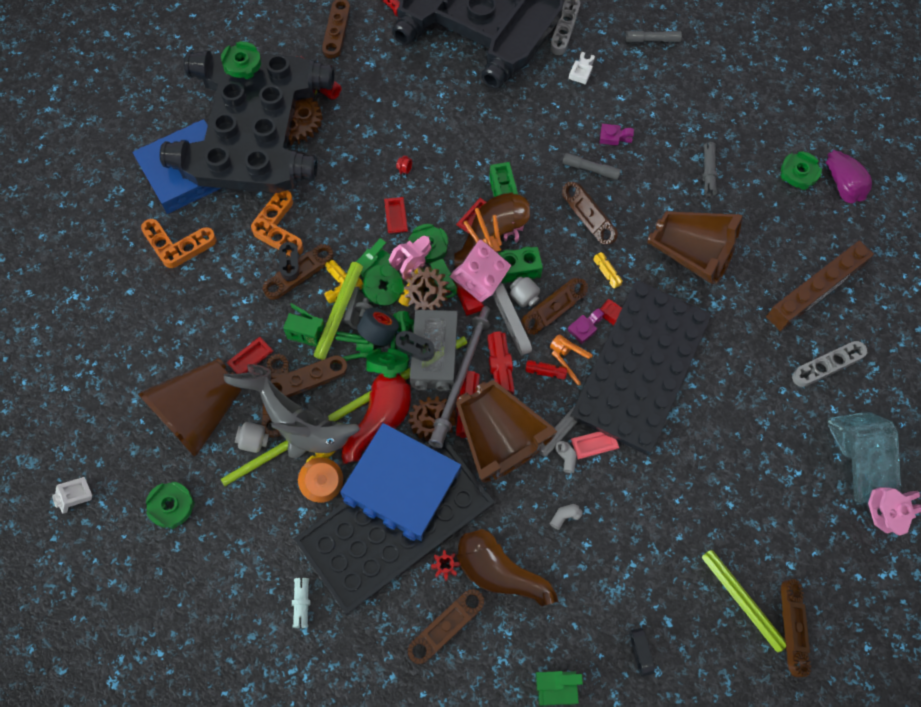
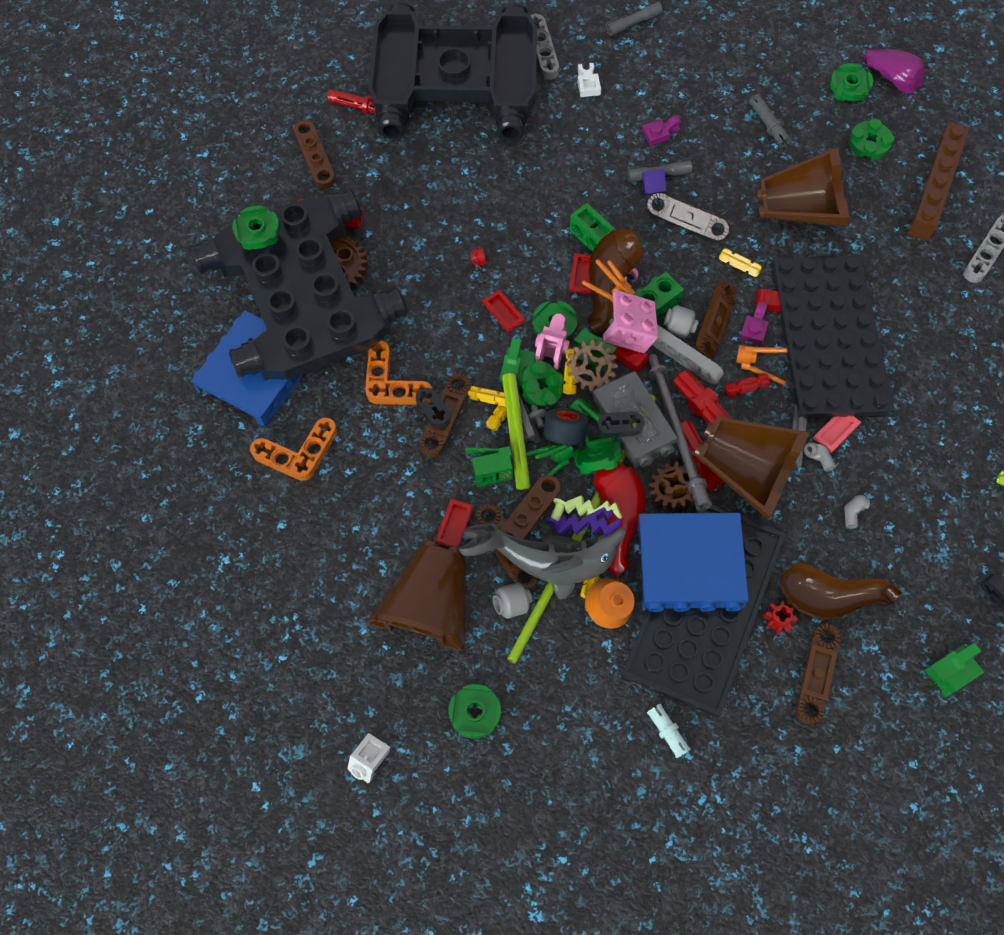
camera: 25 degrees left, 0 degrees up
(343, 408) = (563, 525): none -> piece
(580, 172) = (654, 181): none -> dark purple tile
(787, 214) = (875, 130): none -> green plate

